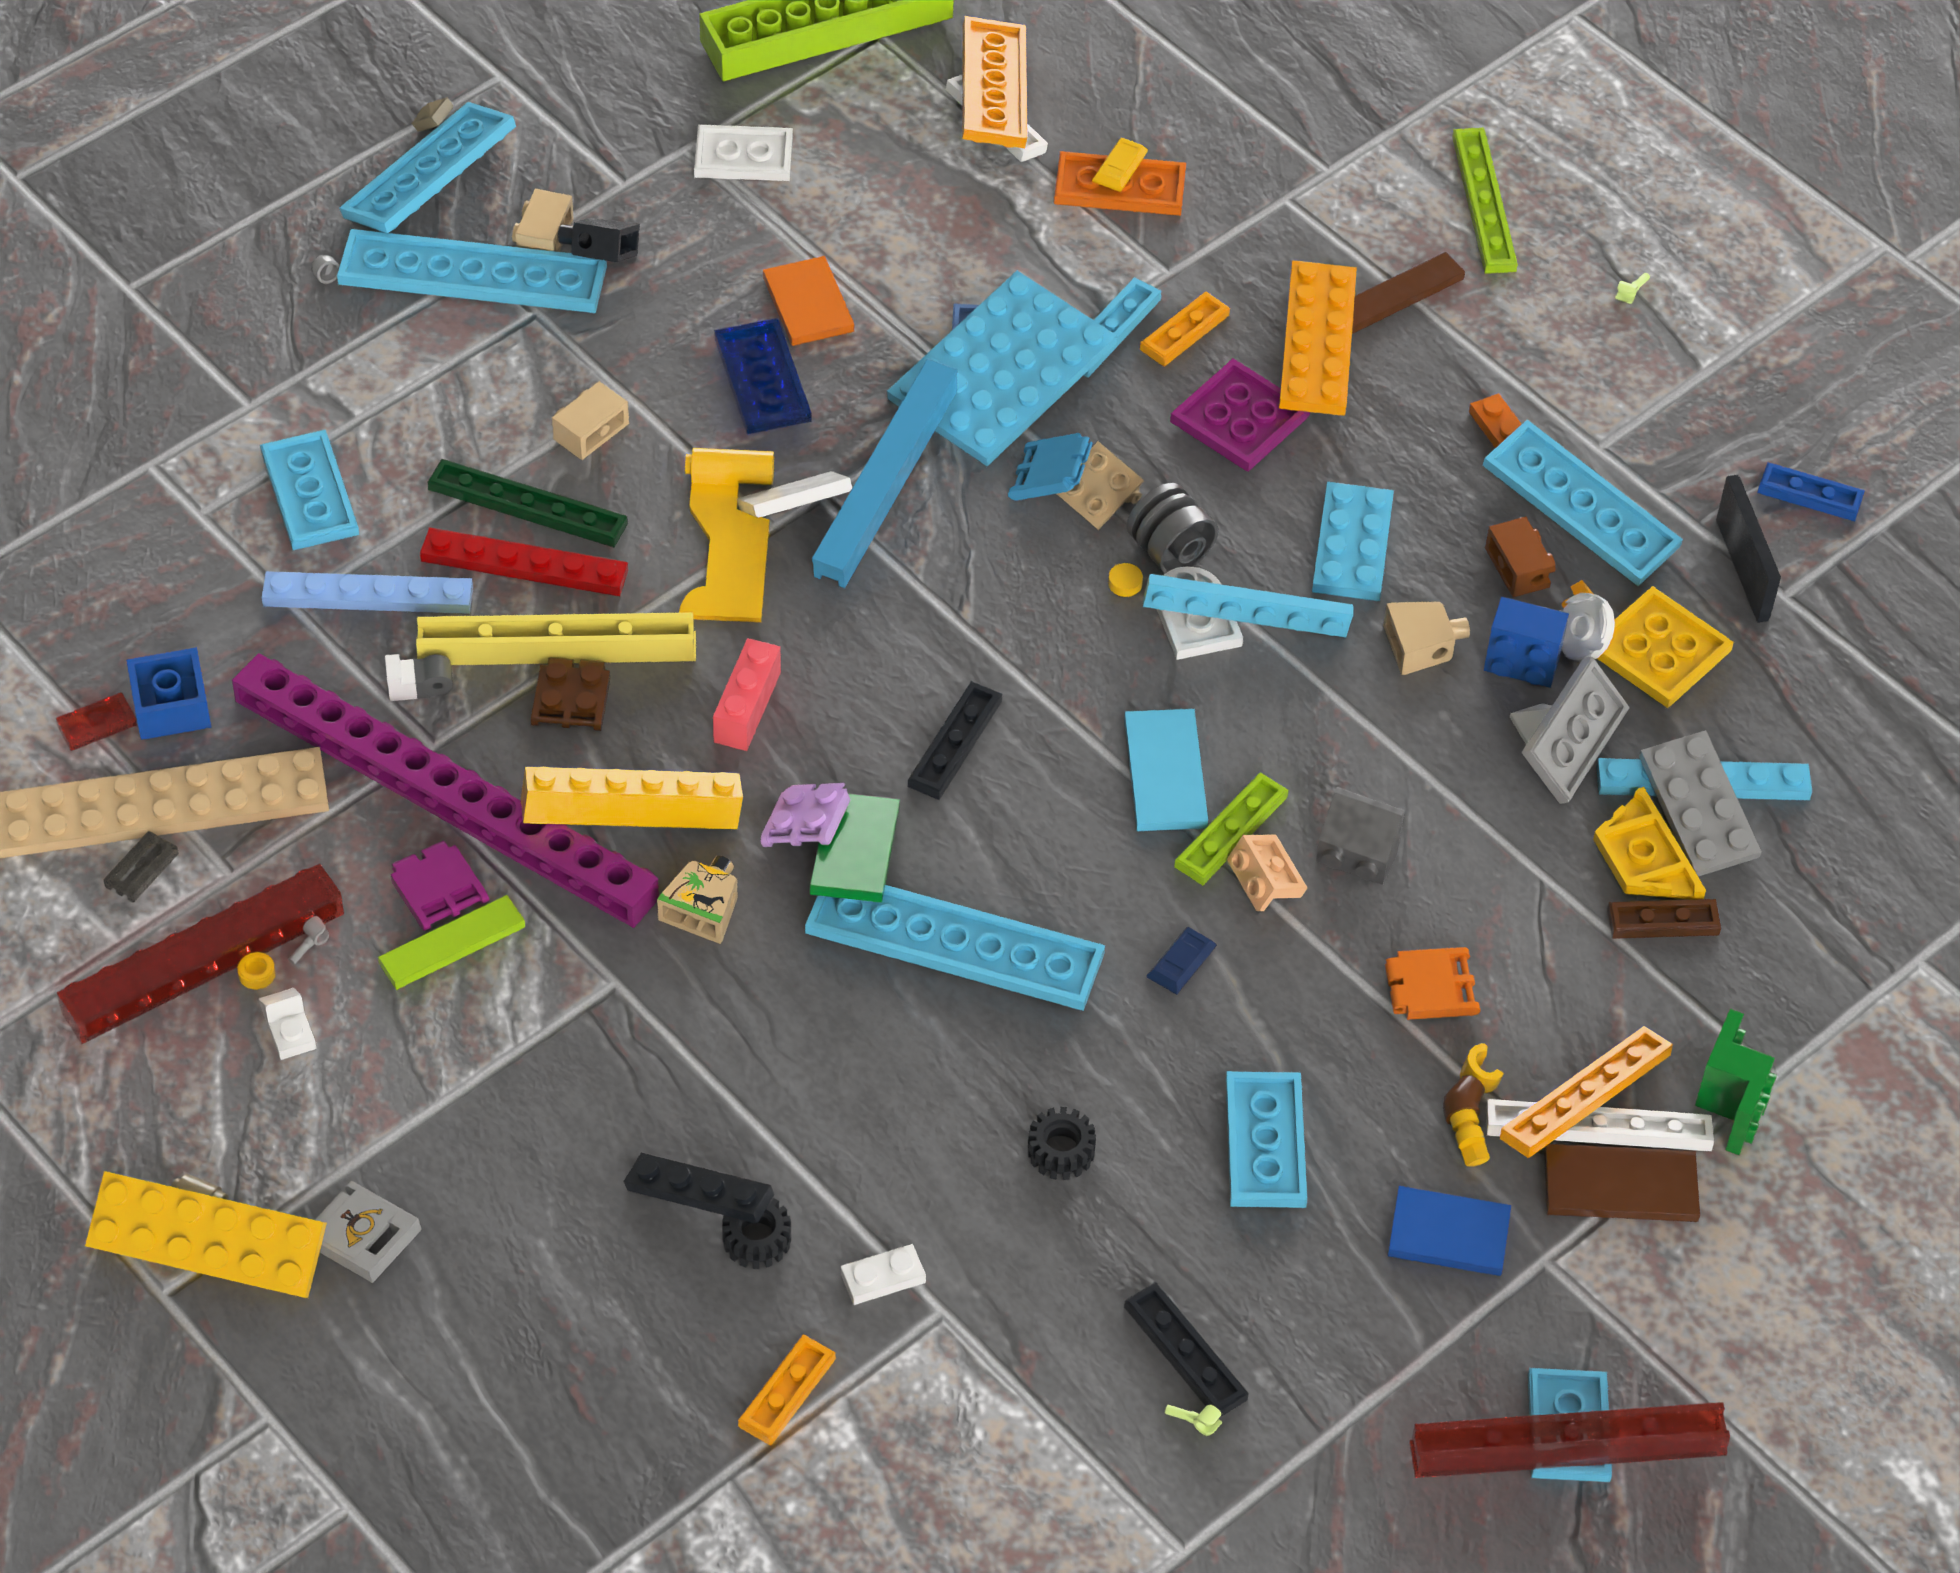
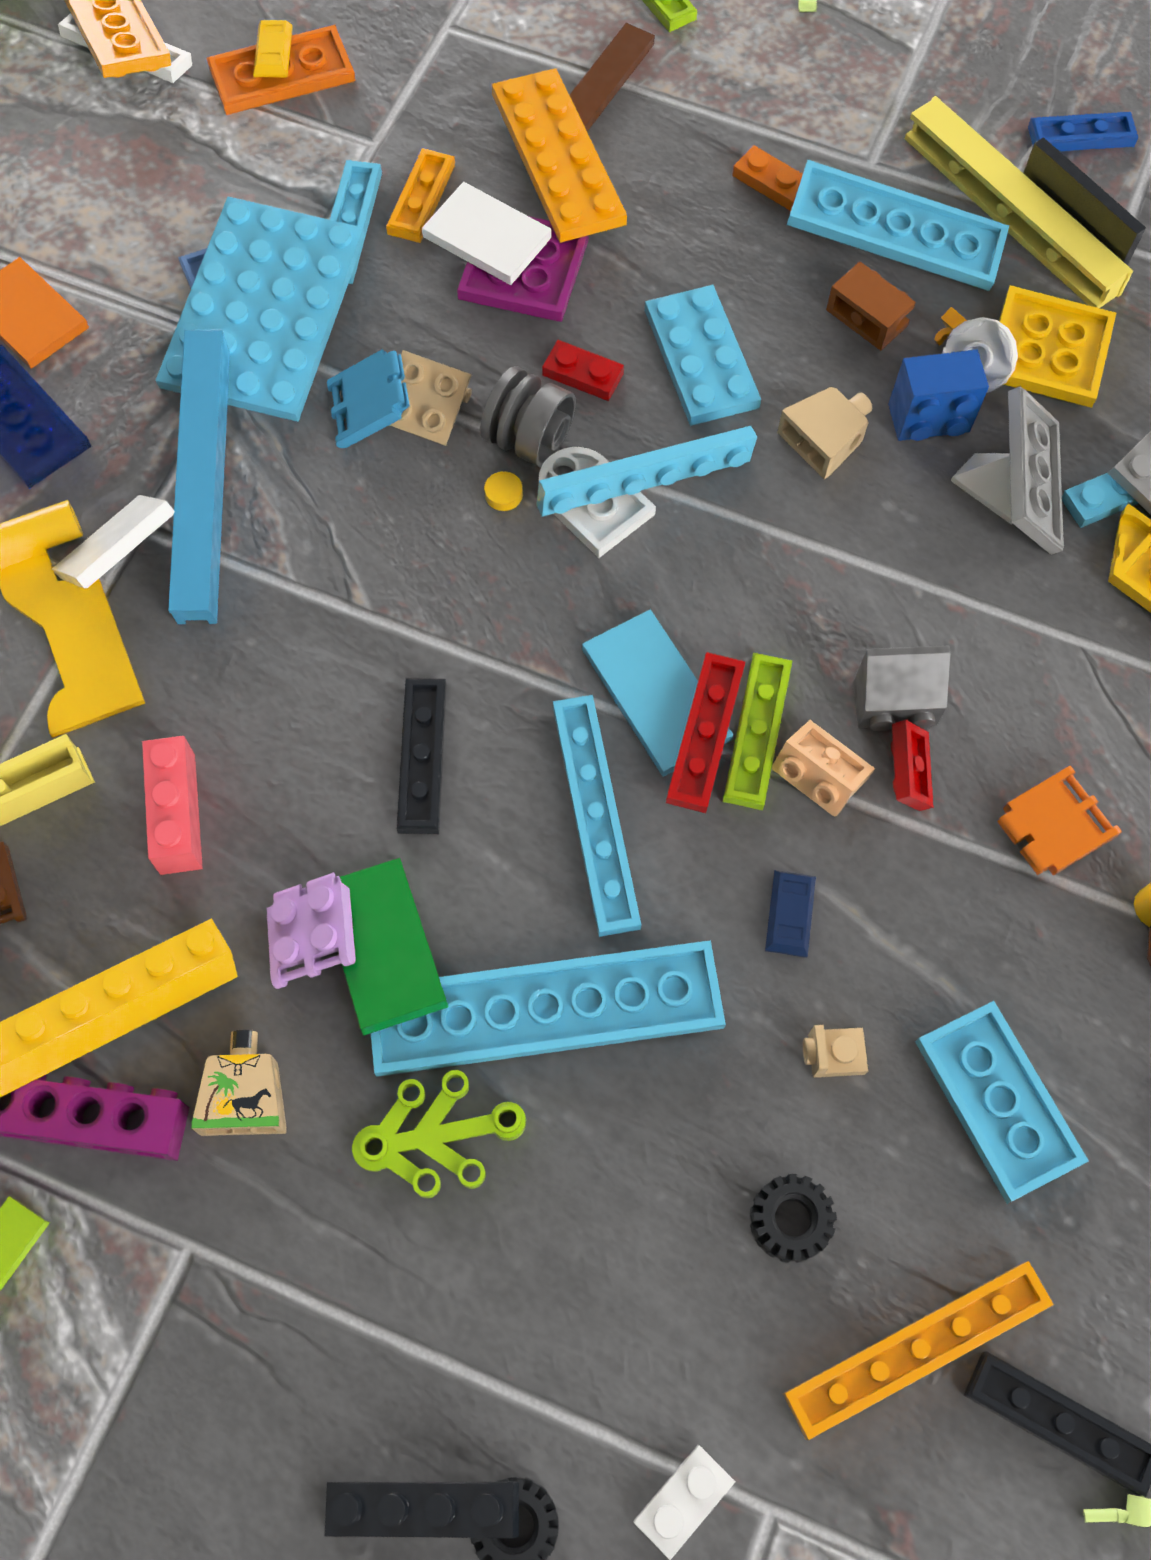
camera: 25 degrees left, 15 degrees up
(828, 983) = (431, 1135): none -> lime plant
(1066, 831) = (596, 816): none -> medium azure plate
(1106, 1258) = (917, 1350): none -> light orange plate
(1158, 1059) = (835, 1052): none -> tan bracket
(1184, 806) = (705, 732): none -> red plate
(1219, 377) = (487, 233): none -> white tile
(1244, 515) = (583, 370): none -> red plate
(1338, 897) = (912, 765): none -> red plate
(1704, 526) = (1015, 200): none -> light yellow tile

